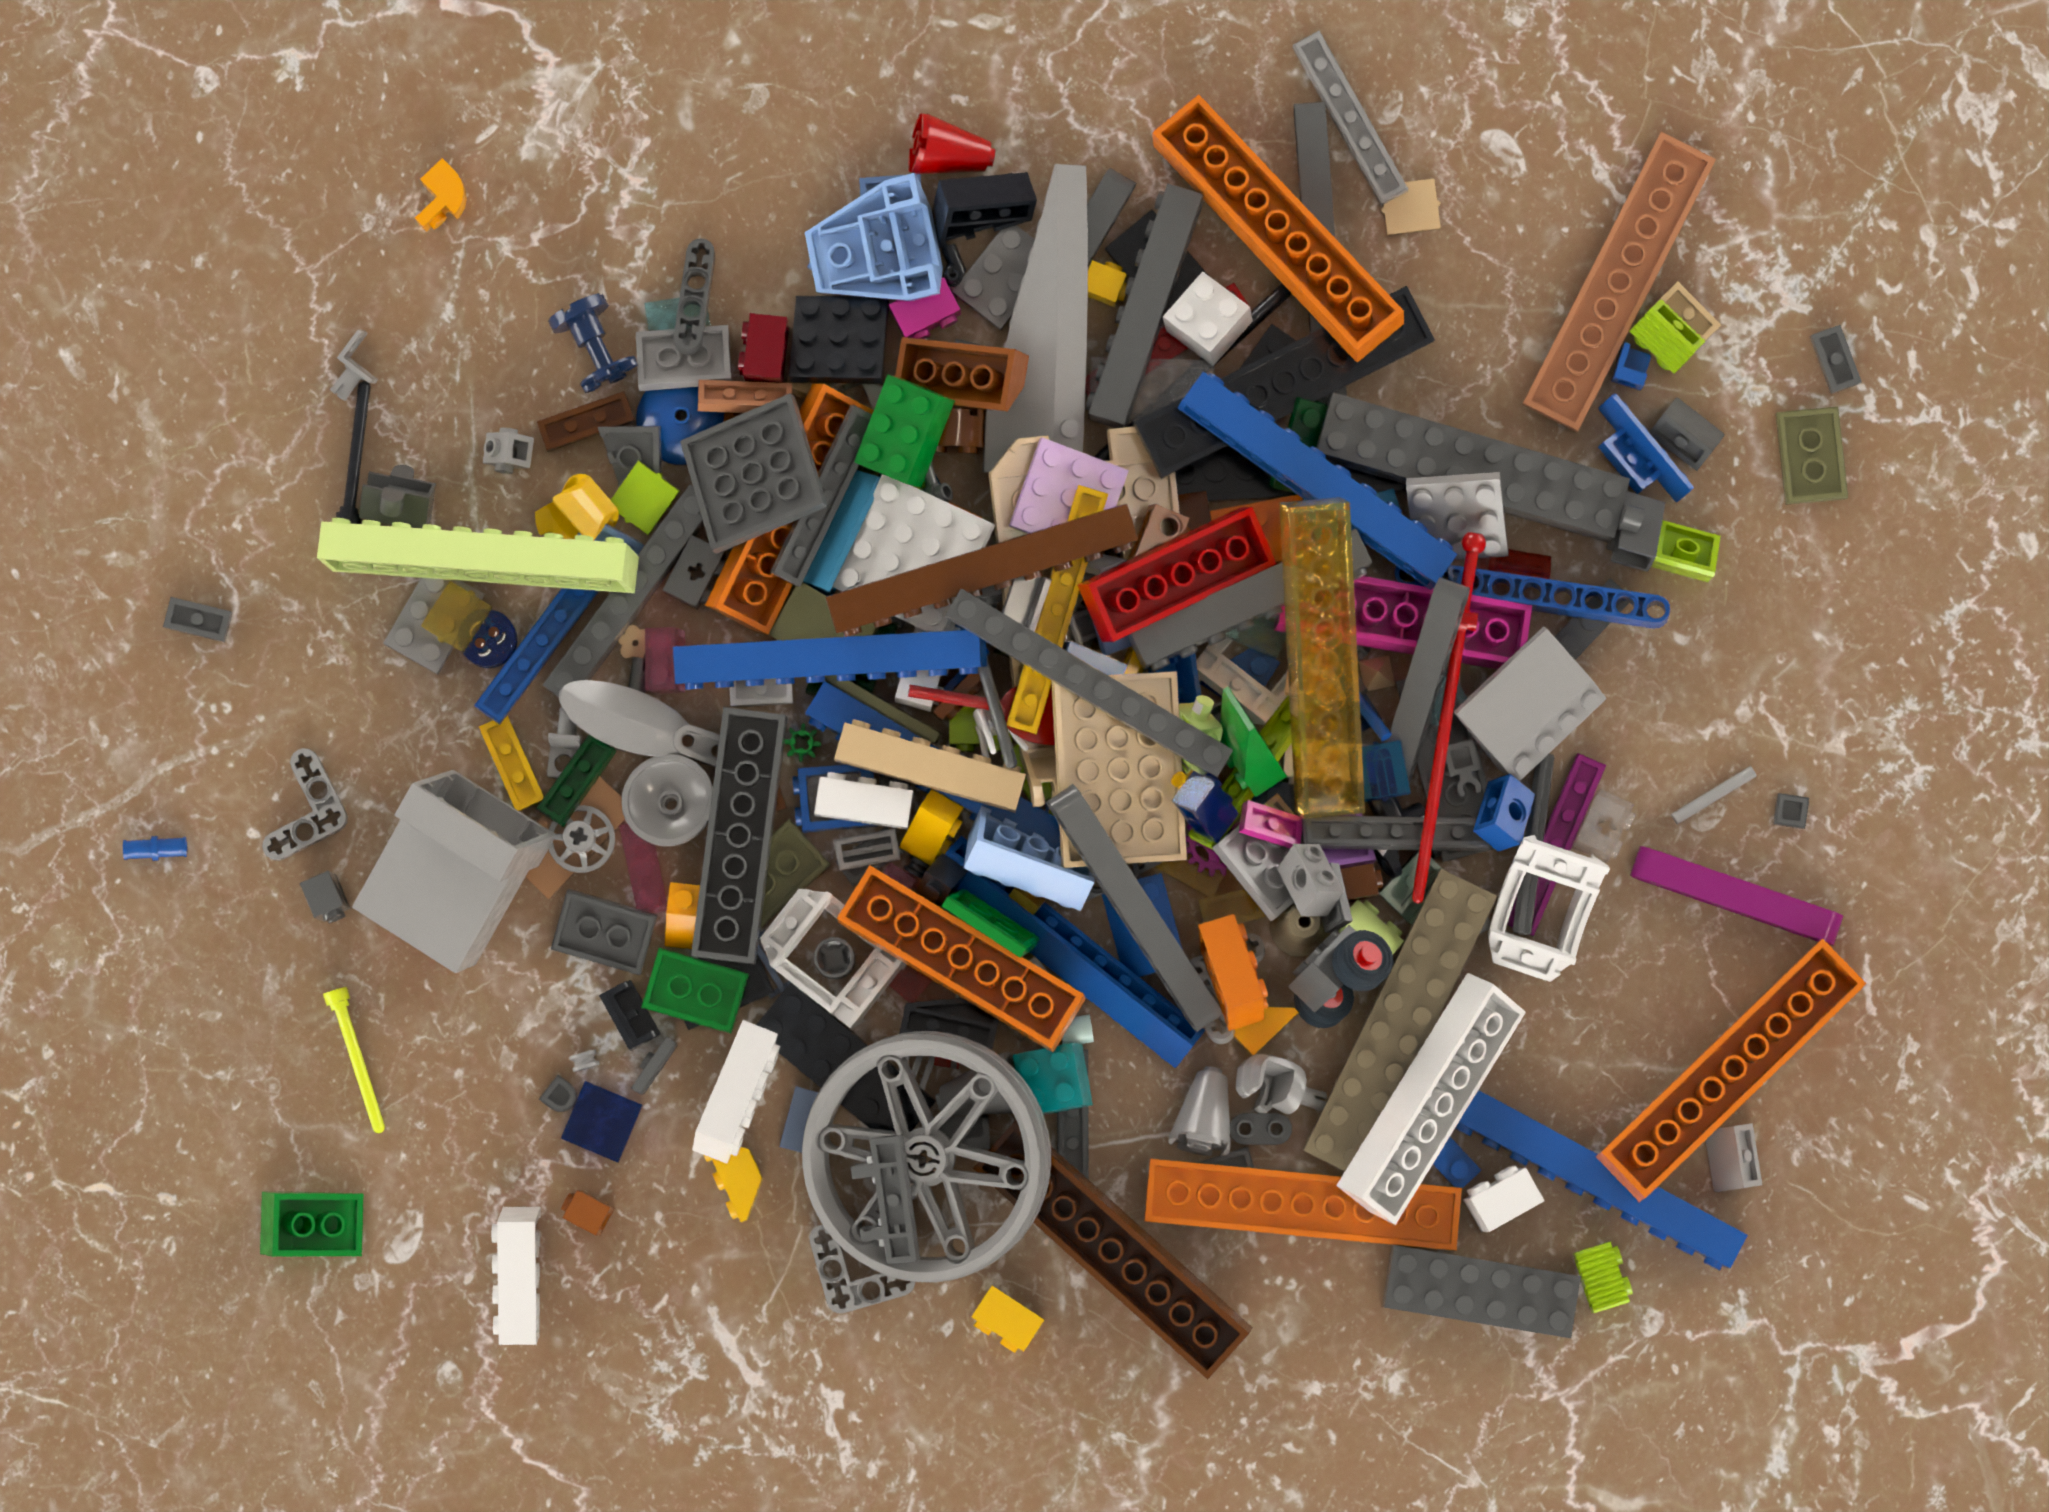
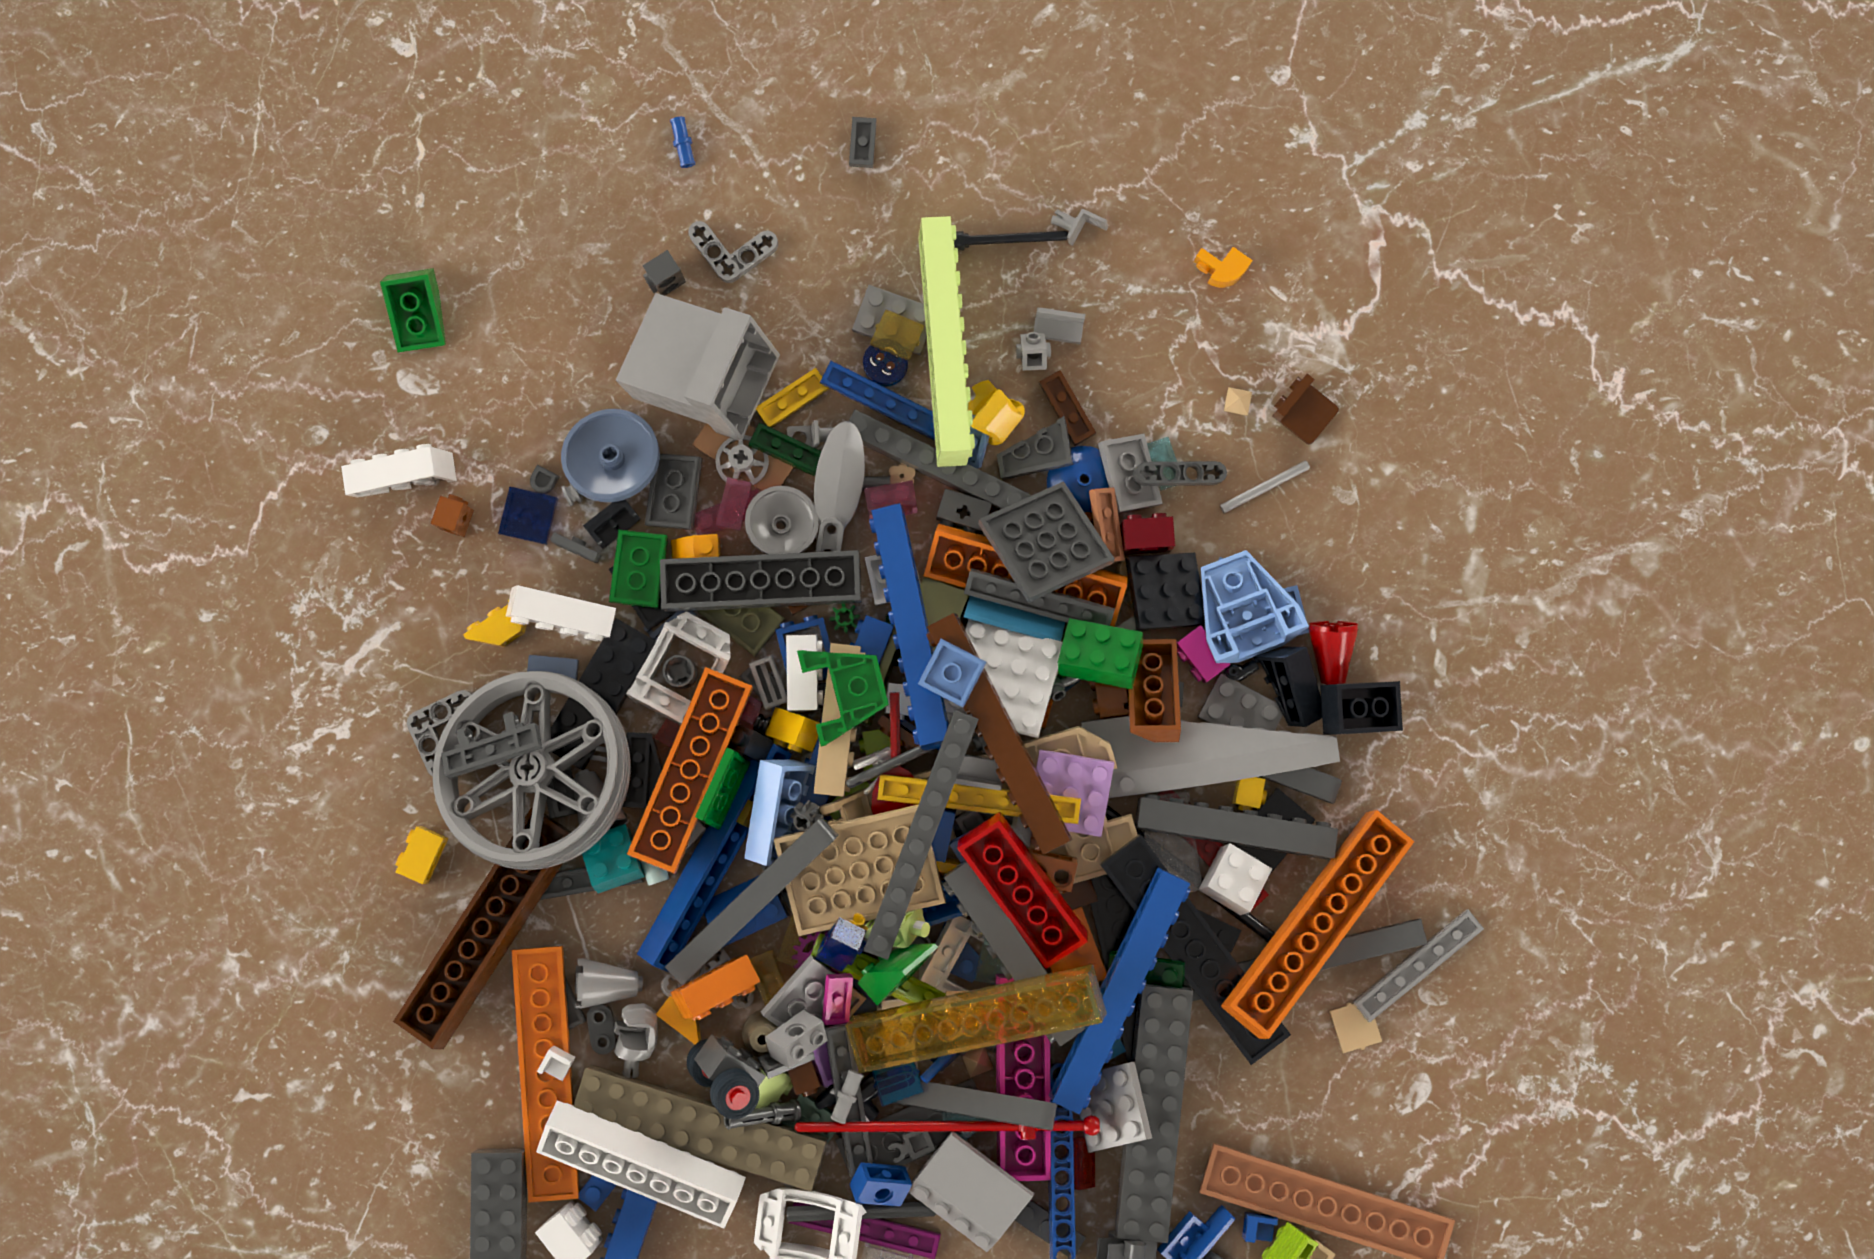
camera: 80 degrees right, 0 degrees up
(338, 1001) = (587, 300): neon yellow piece -> none
(397, 498) = (981, 275): dark grey piece -> none
(479, 413) = (1059, 325): none -> light grey panel
(545, 1002) = (610, 455): none -> sand blue dish
(588, 333) = (1136, 395): dark blue piece -> none
(615, 209) = (1237, 401): none -> tan slope
(635, 856) = (733, 504): none -> clear pink plate
(642, 127) = (1305, 410): none -> reddish brown bracket
(644, 497) = (1015, 462): lime piece -> none
(728, 195) = (1265, 486): none -> light grey bar
(893, 734) = (856, 687): none -> green wing
(899, 611) = (952, 673): none -> medium blue tile
(1025, 127) = (1361, 708): none -> black brick
(1041, 824) = (805, 815): none -> dark grey gear
(1292, 1185) = (556, 1063): none -> white panel
(1390, 832) = (846, 1096): none -> light grey pin
(1397, 927) = (772, 1113): none -> dark grey pin

